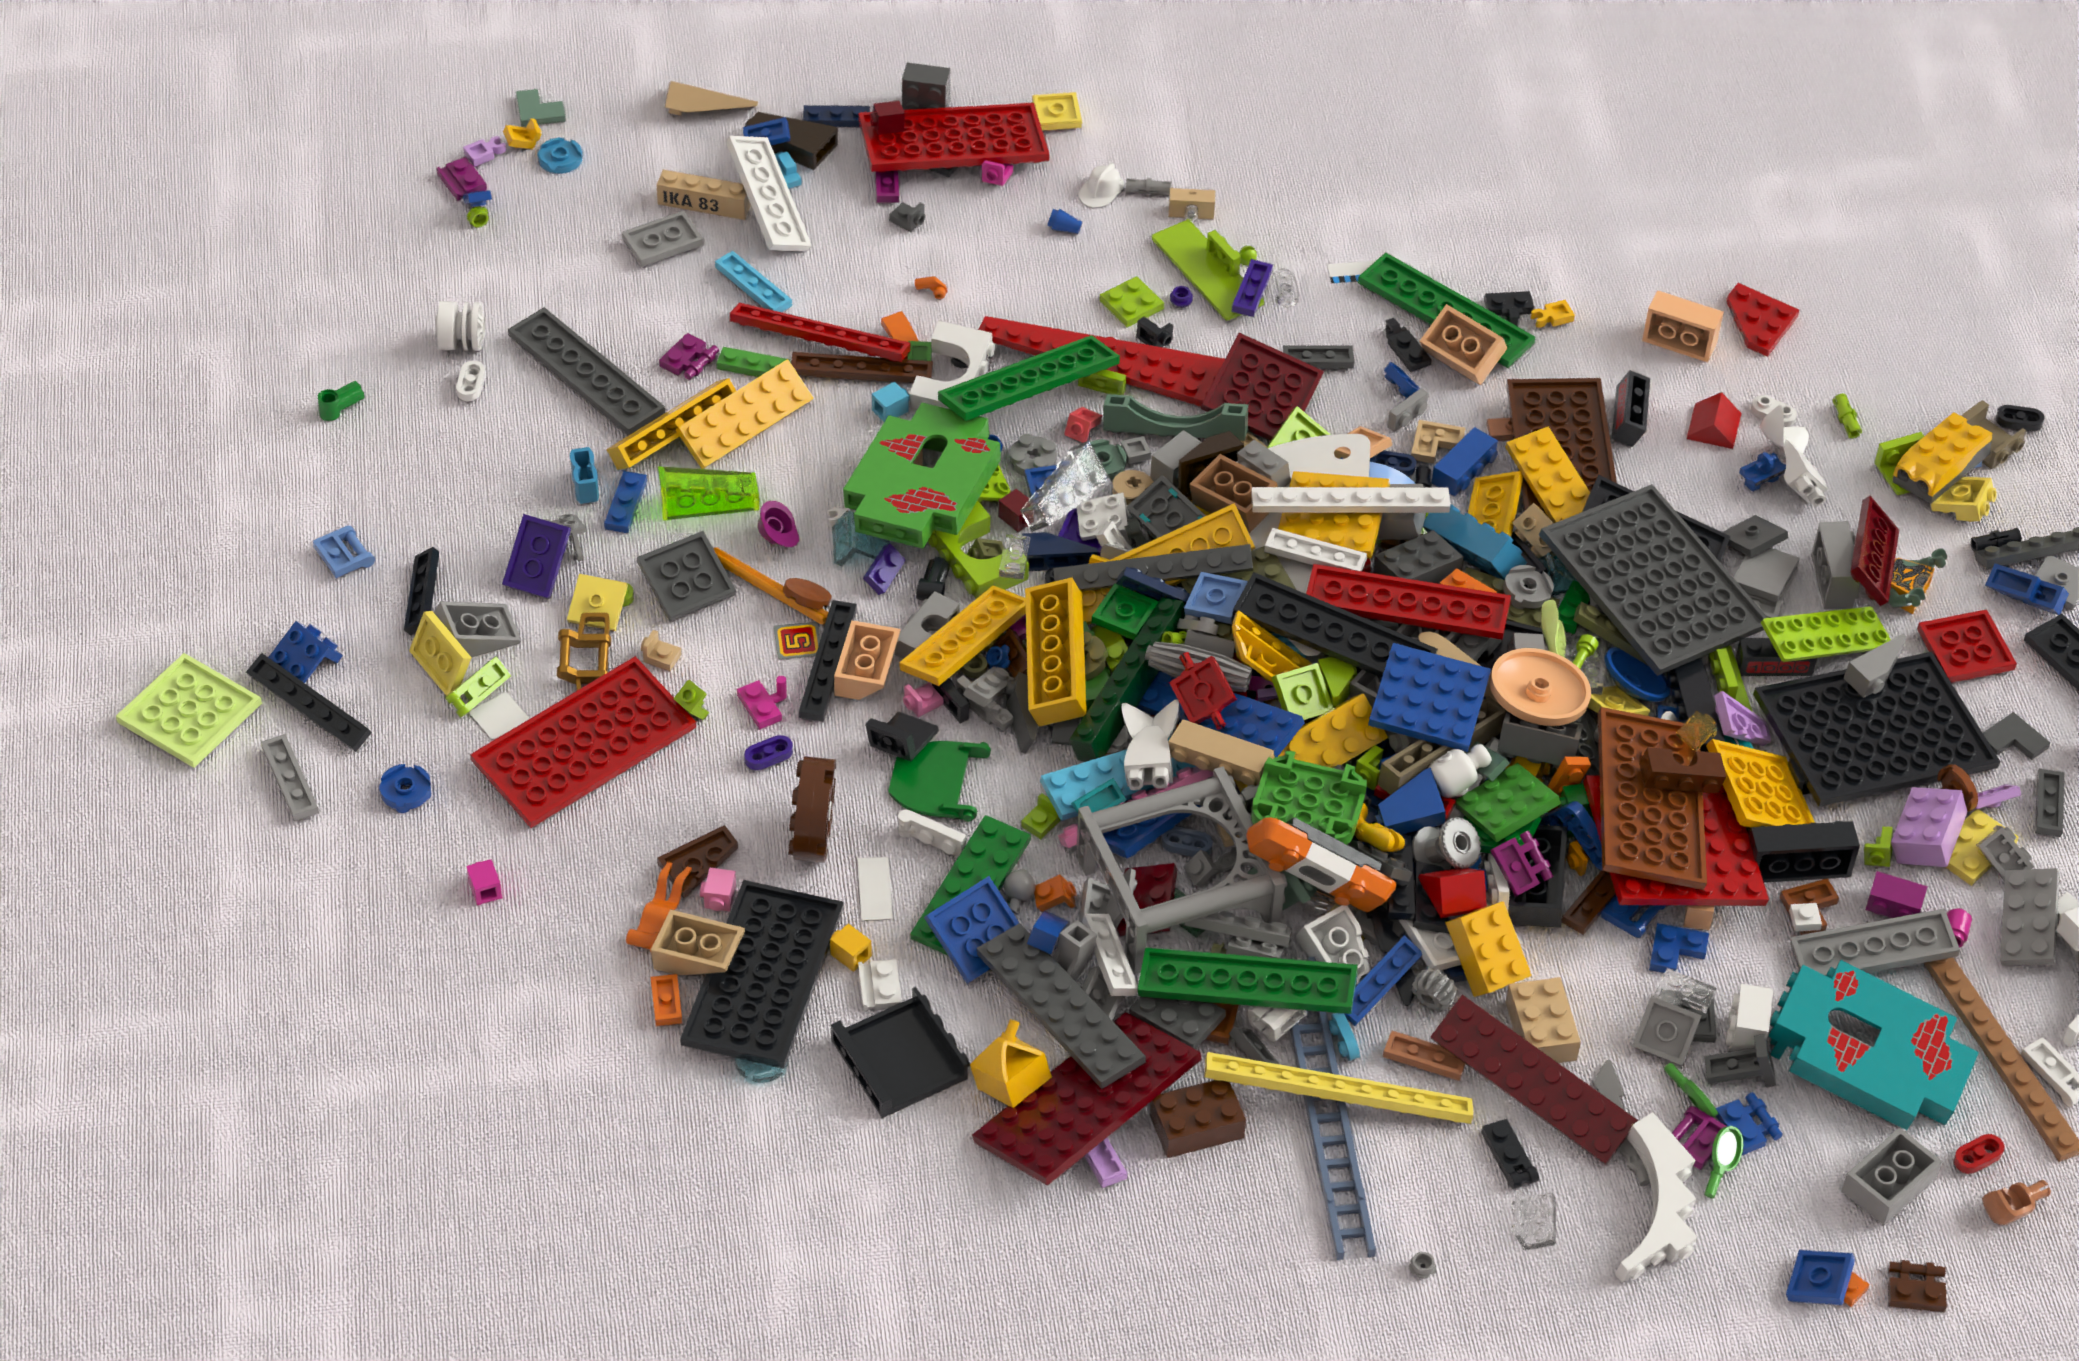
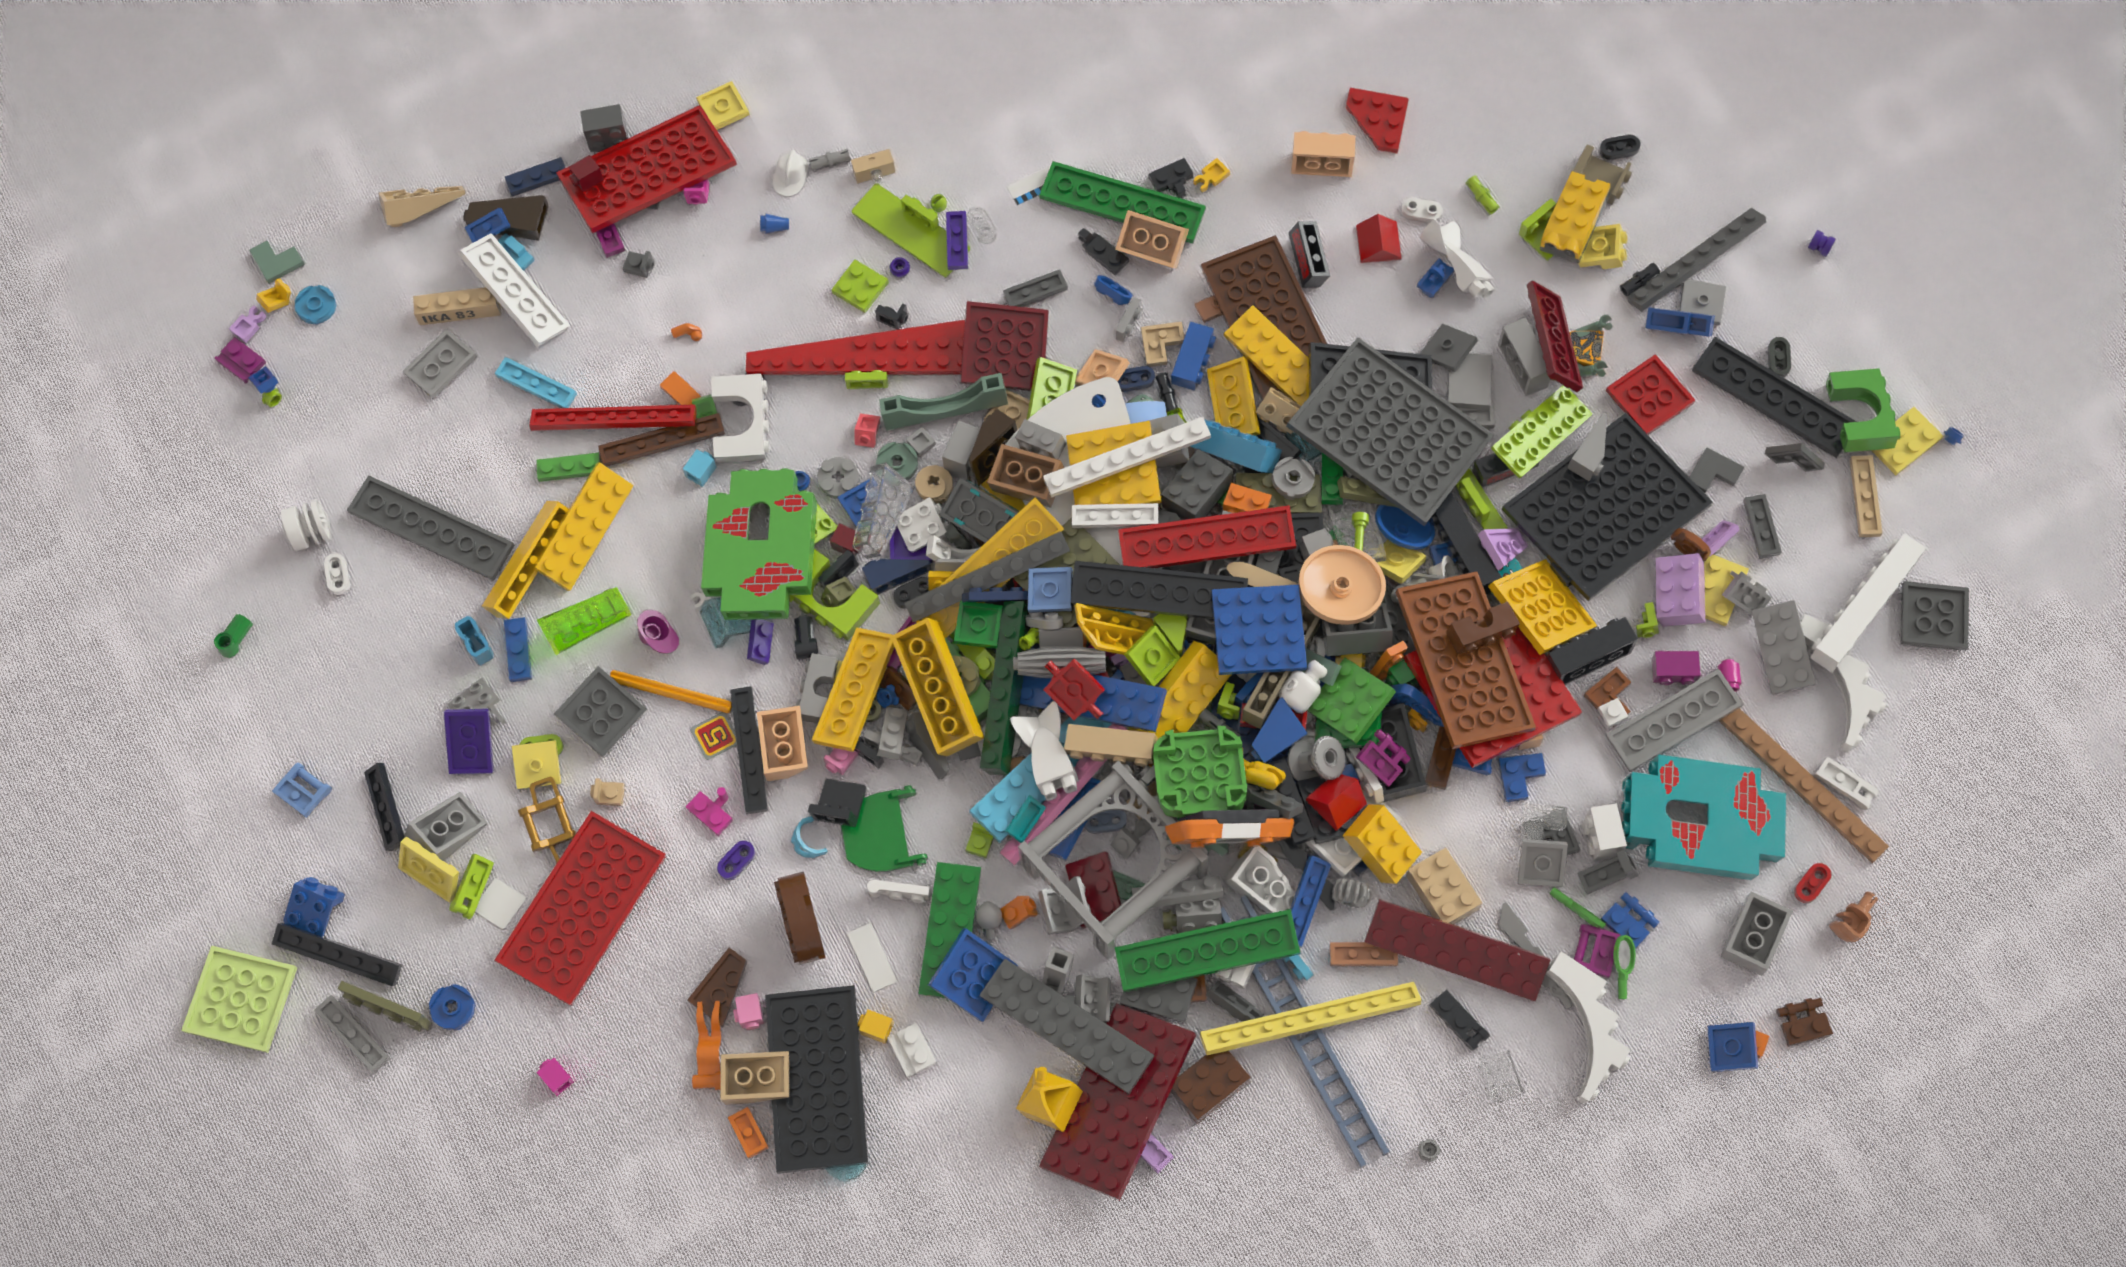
camera: 15 degrees left, 20 degrees up
(336, 758) = (381, 1005): none -> olive plate
(683, 354) = (505, 478): magenta plate -> none
(691, 699) = (655, 837): lime bracket -> none
(807, 593) = (706, 691): dark orange tile -> none
(855, 773) = (797, 841): none -> medium azure helmet
(901, 1054) = (954, 1111): black panel -> none
(997, 529) = (840, 568): none -> black plate
(1014, 556) = (865, 597): clear plate -> none
(1028, 378) = (810, 413): green plate -> none
(1047, 931) = (1030, 956): blue slope -> none
(1111, 956) = (1087, 961): white plate -> none
(1553, 628) = (1330, 518): yellowish green animal -> none
(1697, 730) = (1480, 581): clear yellow bracket -> none

